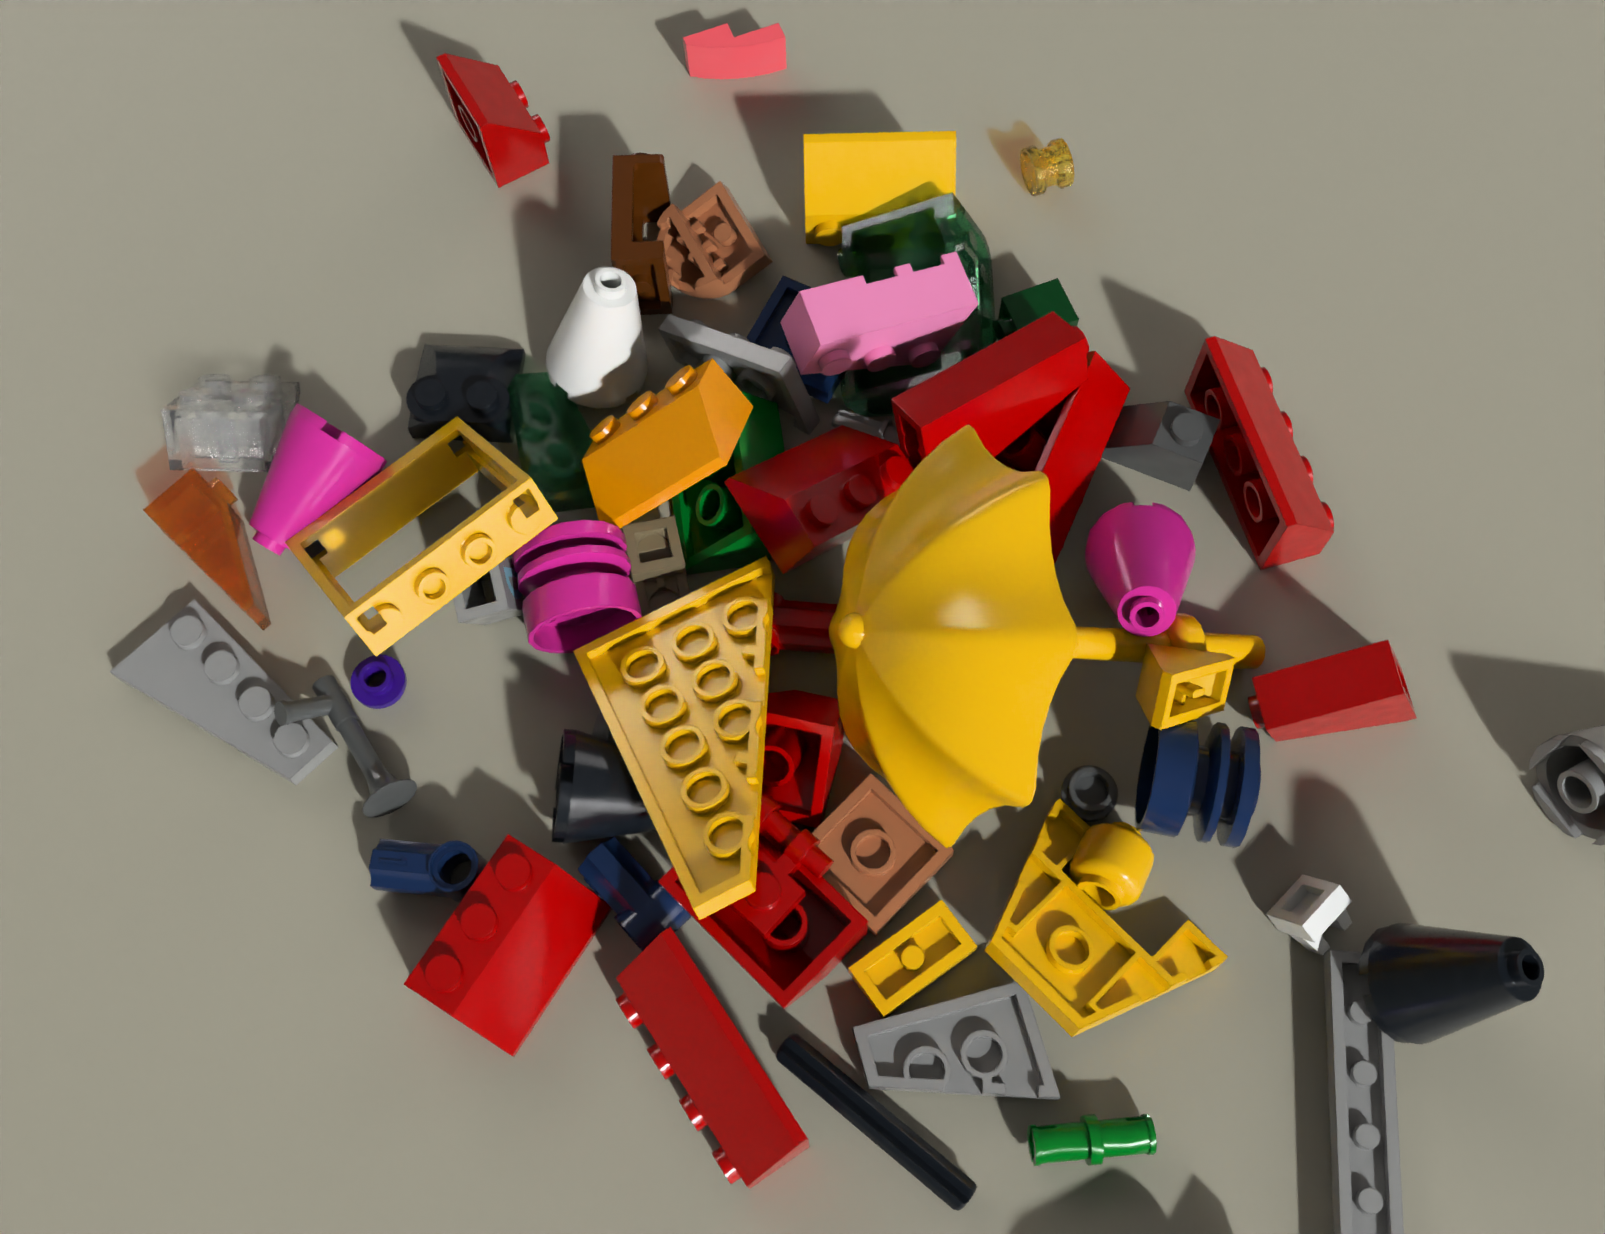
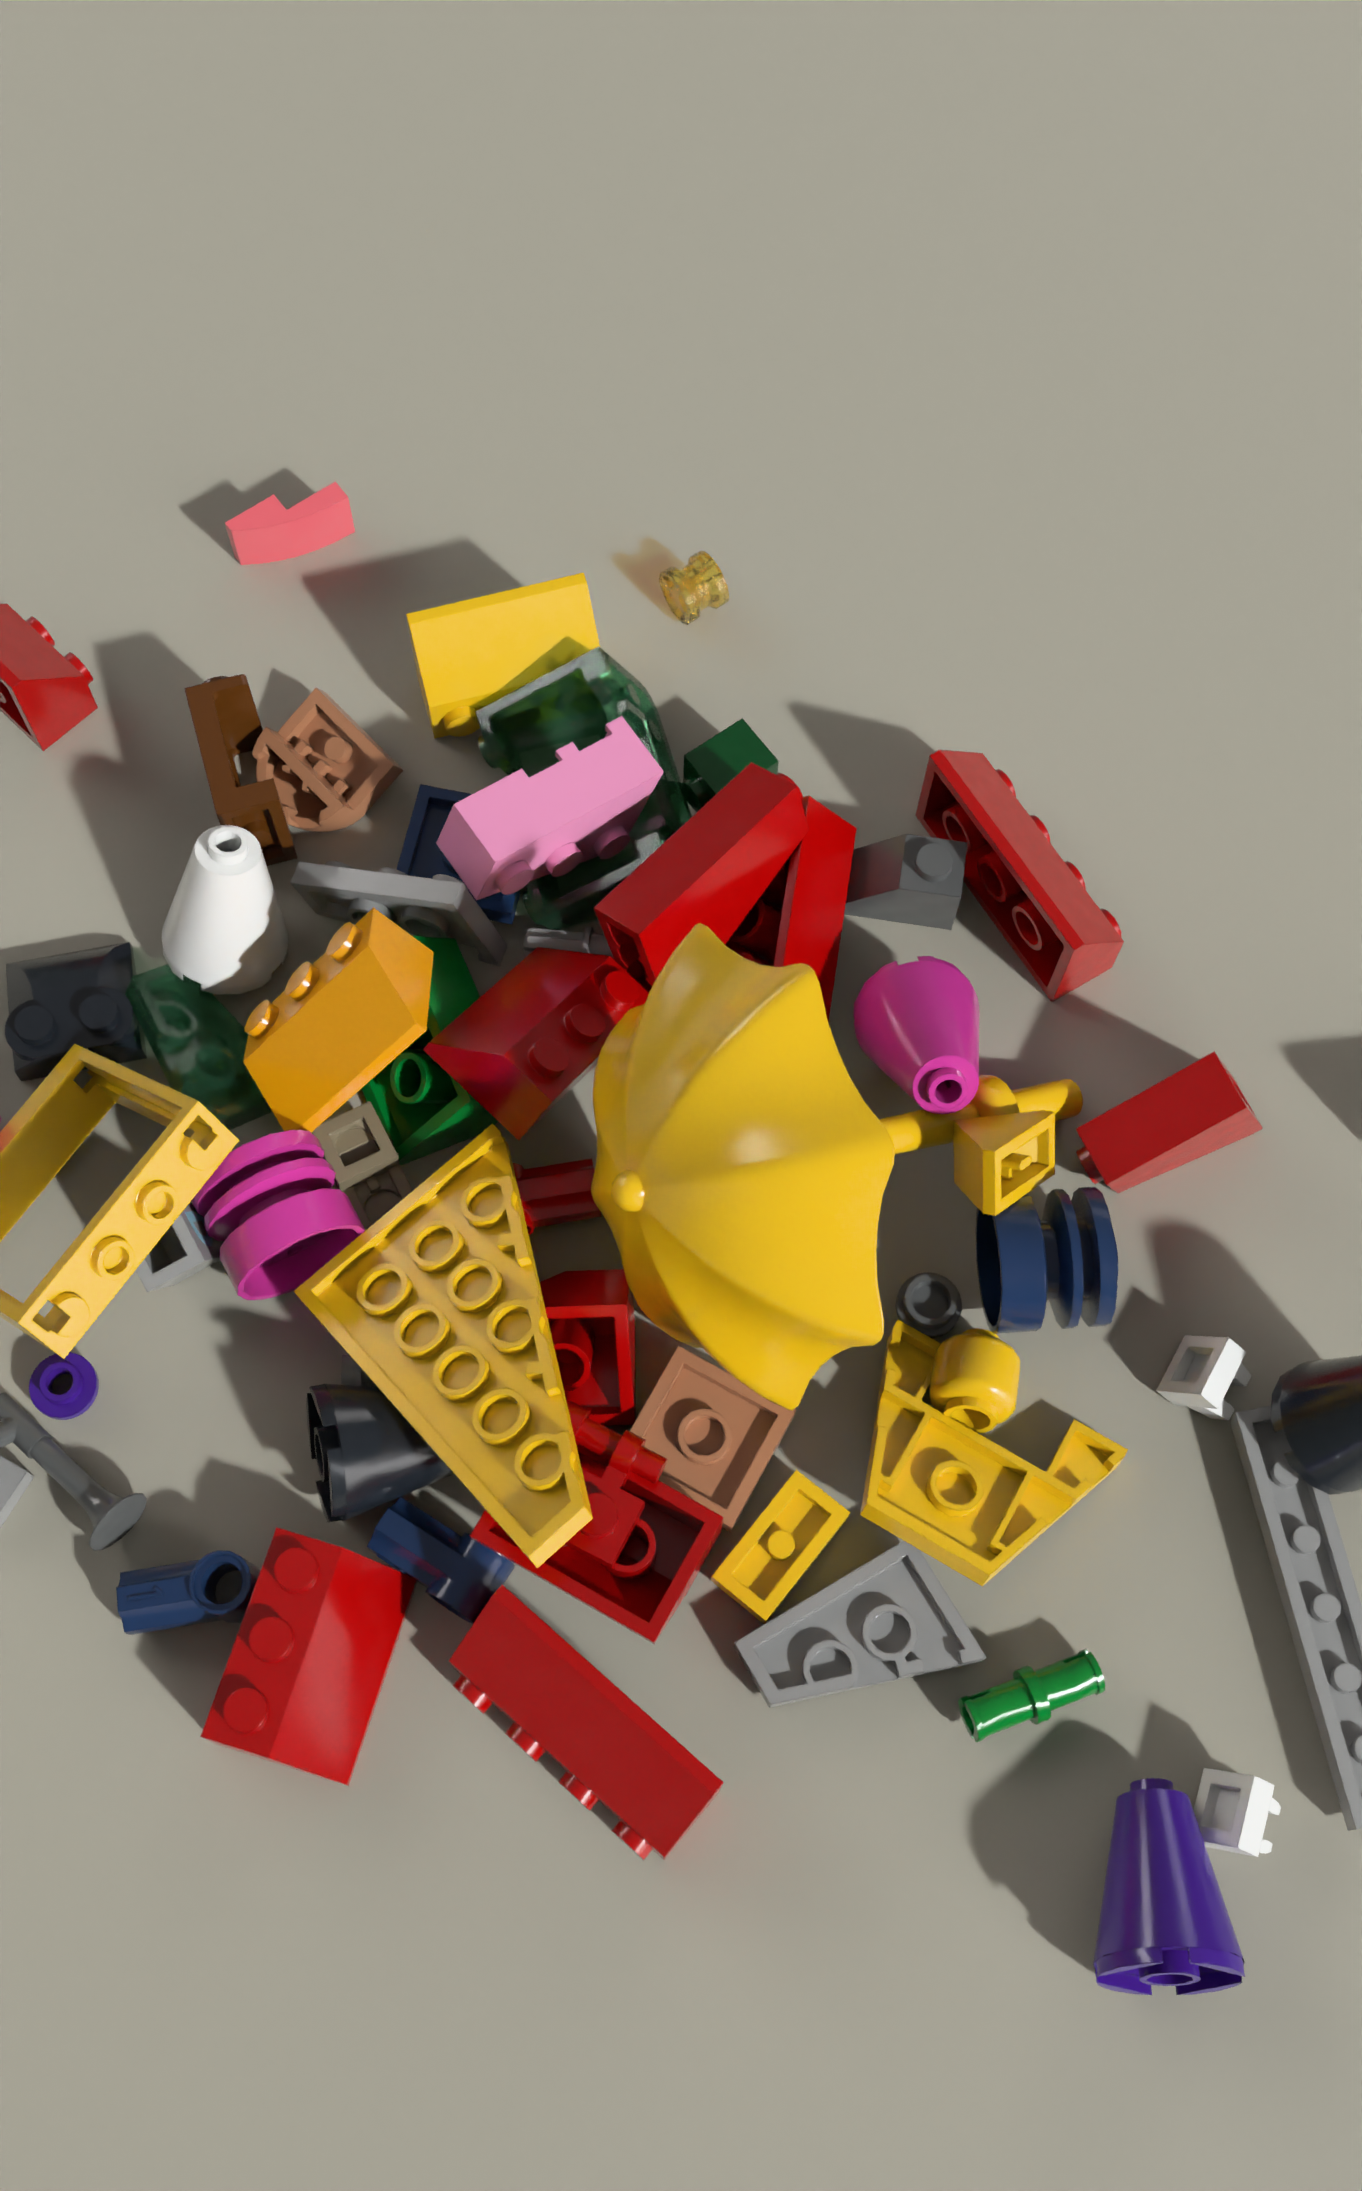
camera: 20 degrees left, 0 degrees up
(876, 1122) = (787, 1742): black axle -> none

